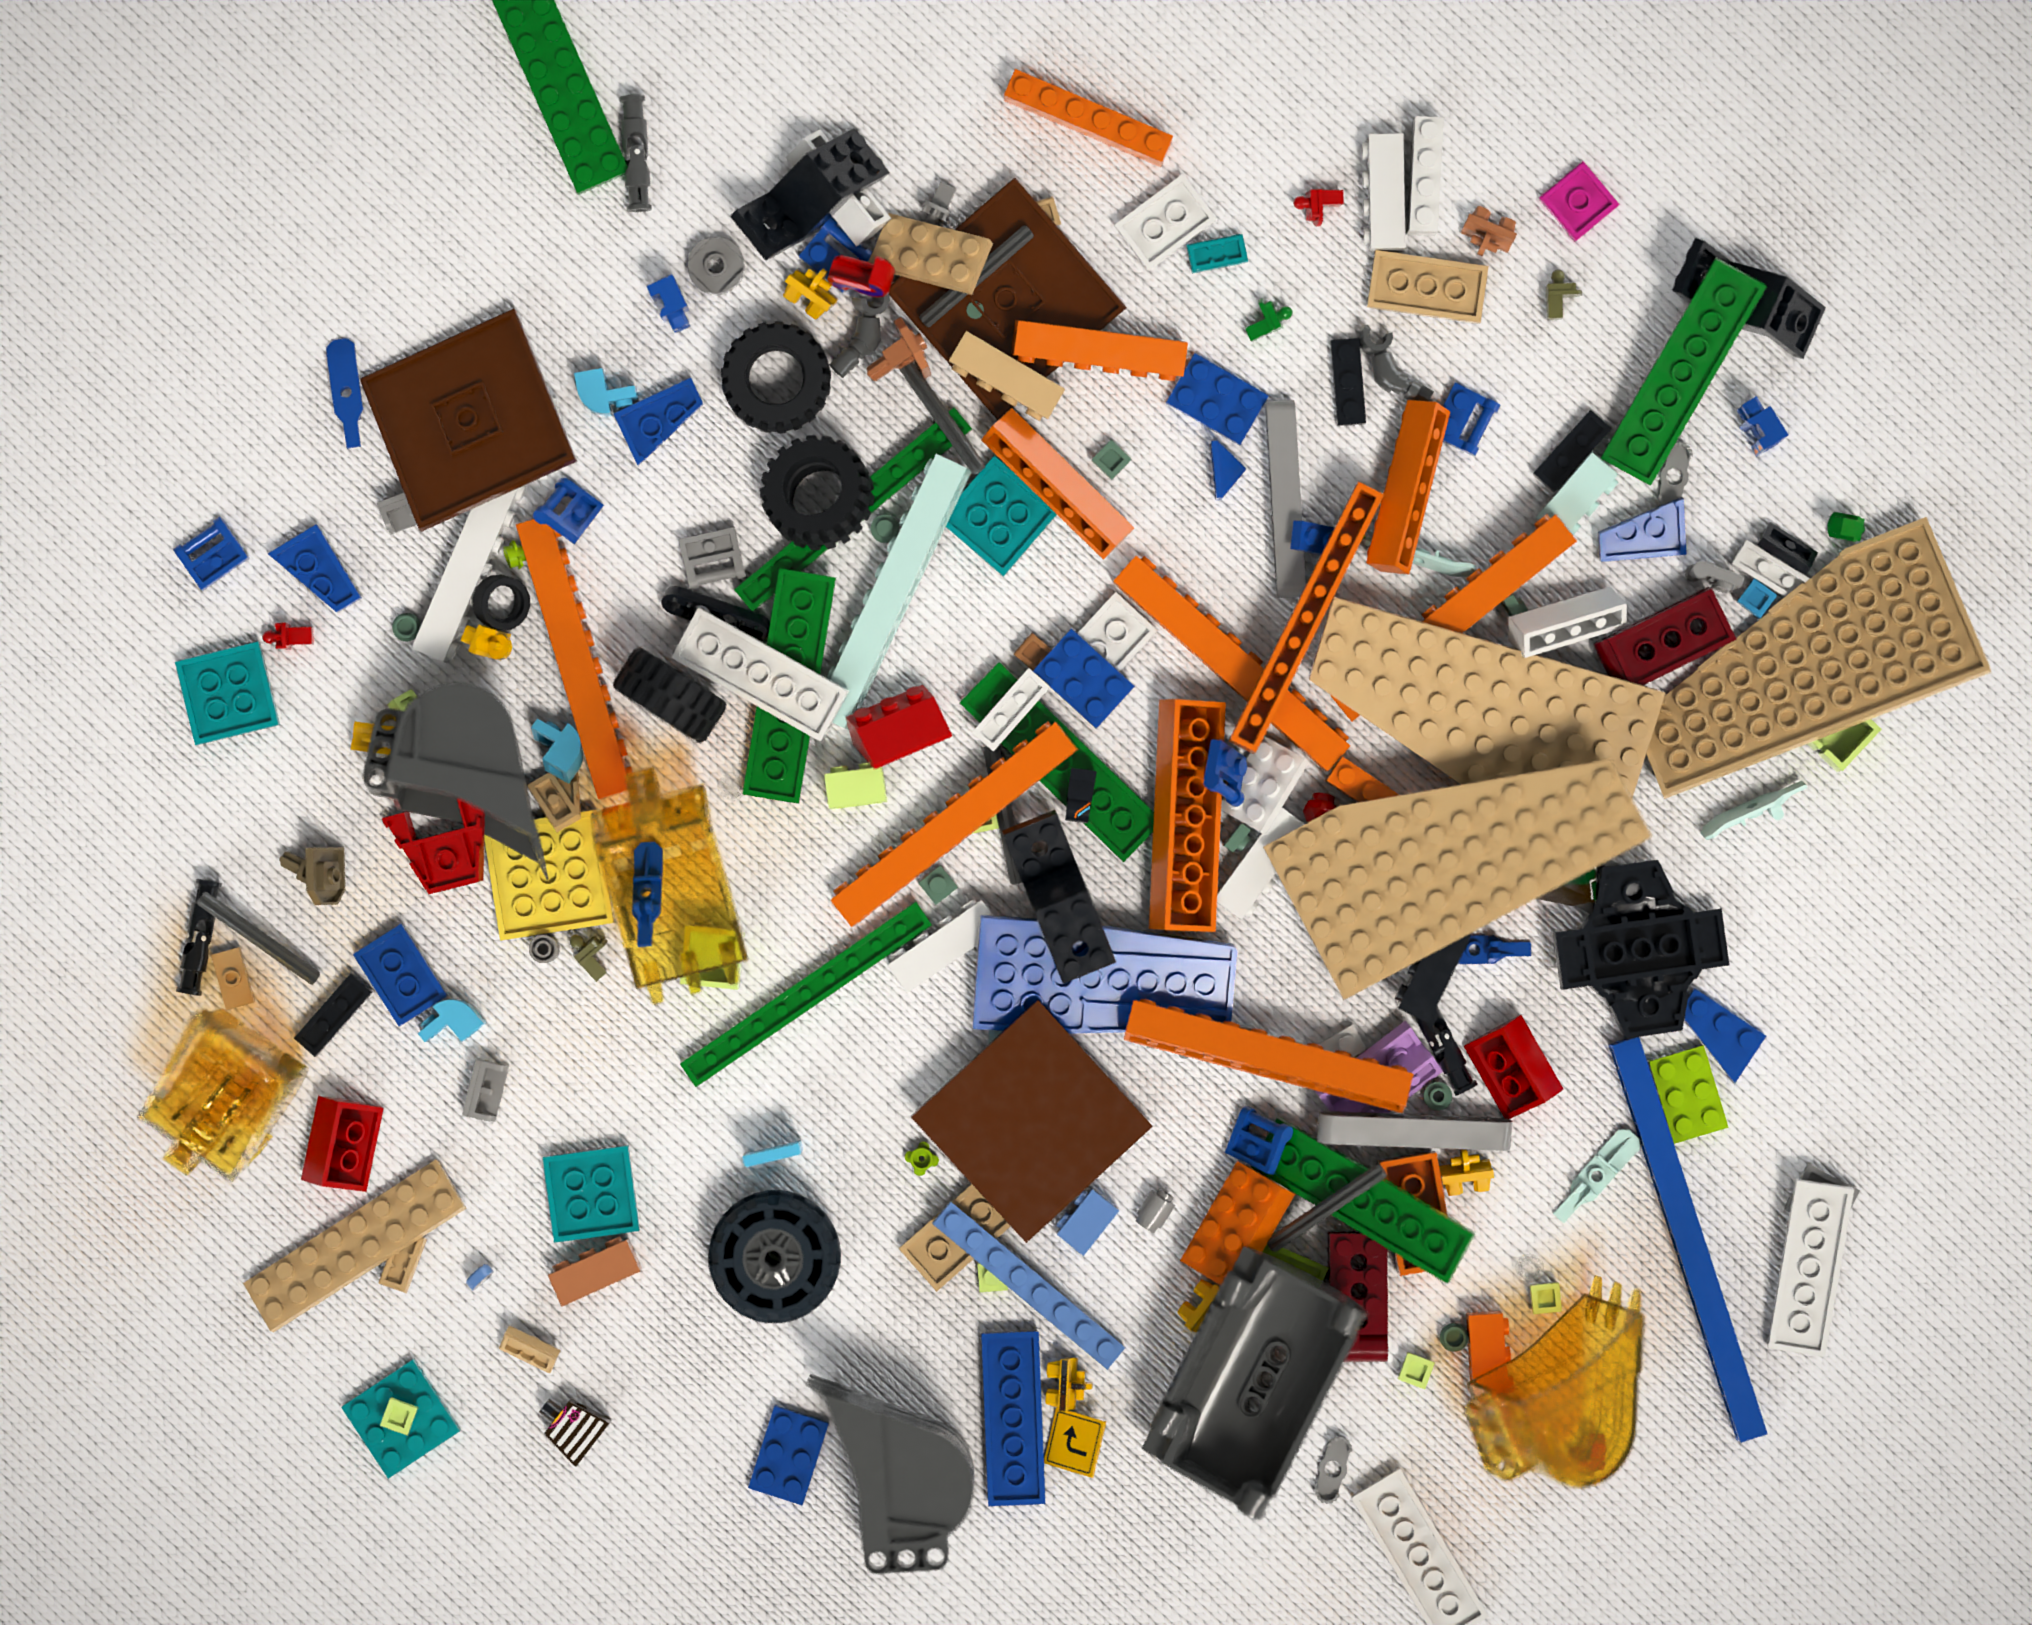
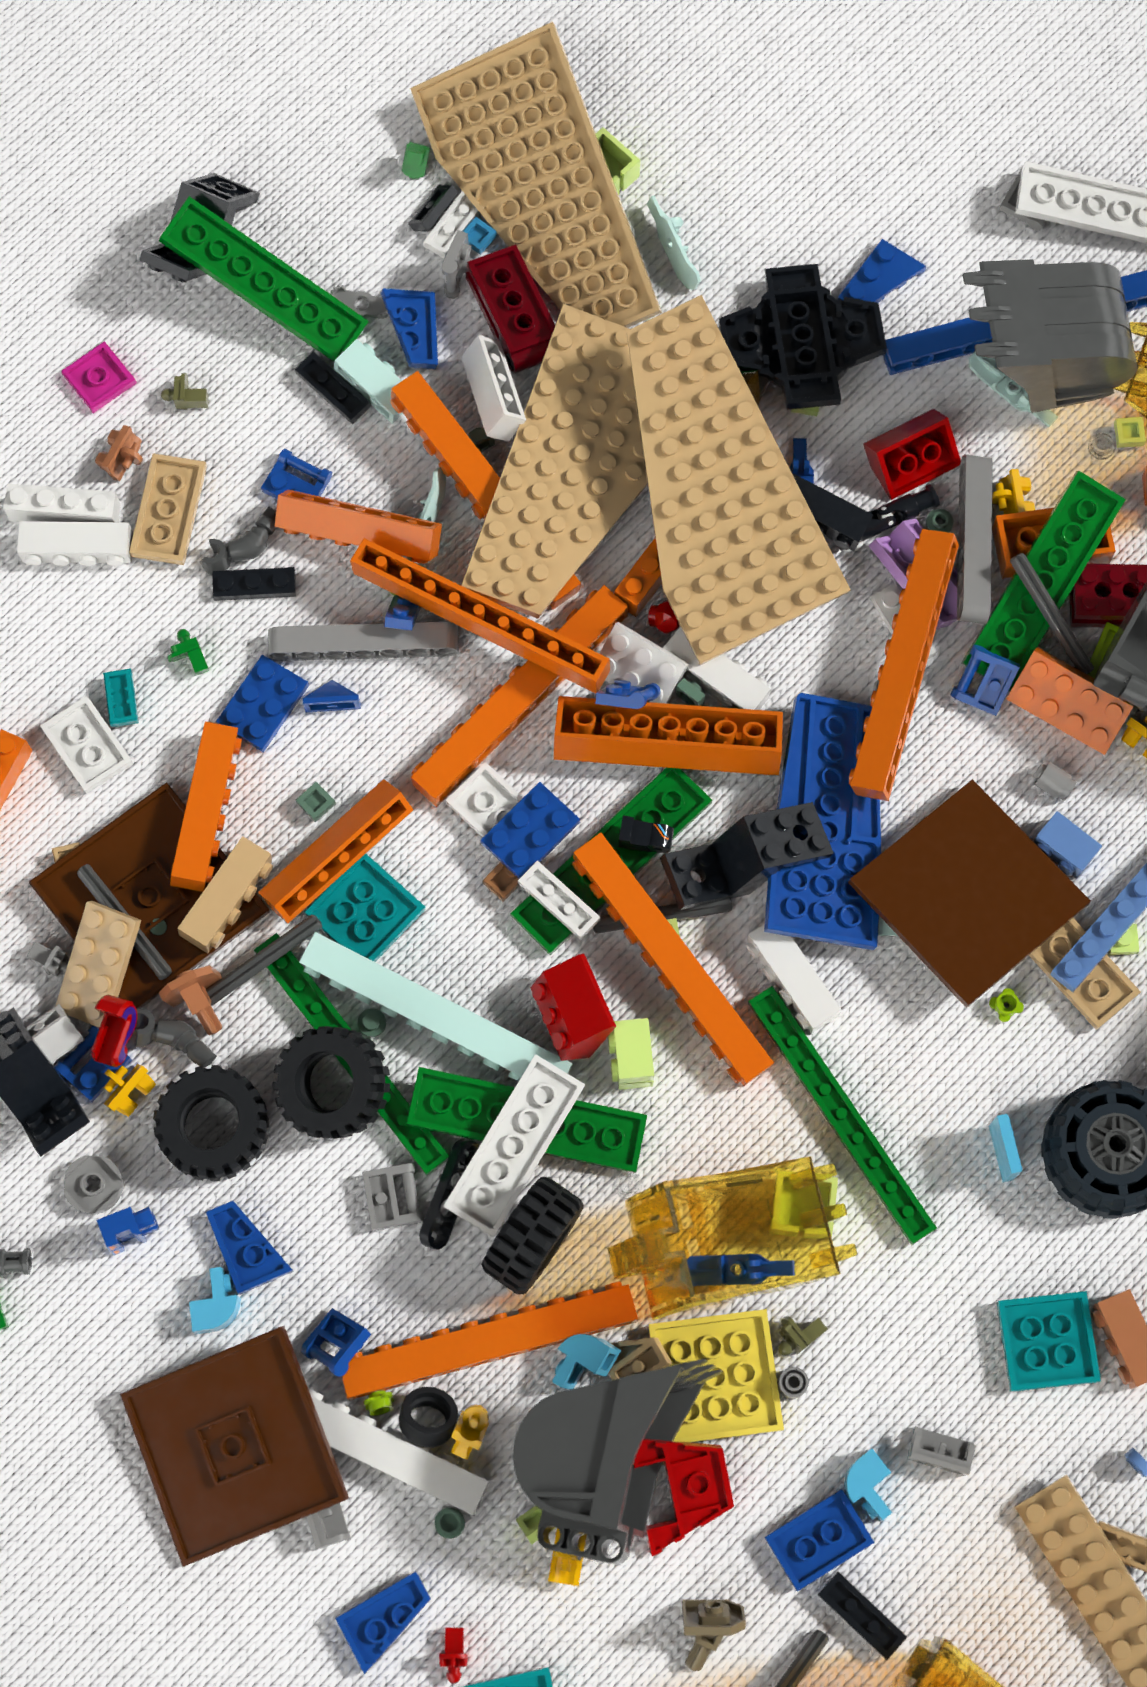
camera: 85 degrees left, 15 degrees down
(342, 1144) = (1000, 1610): red slope -> none
(344, 375) = (178, 1582): blue piece -> none
(938, 885) = (731, 981): sand green plate -> none
(1316, 200) = (79, 605): red piece -> none
(1625, 1206) = (1056, 328): none -> dark grey piece
(1688, 1094) = (932, 303): lime plate -> none
(1763, 425) = (319, 221): blue hips -> none

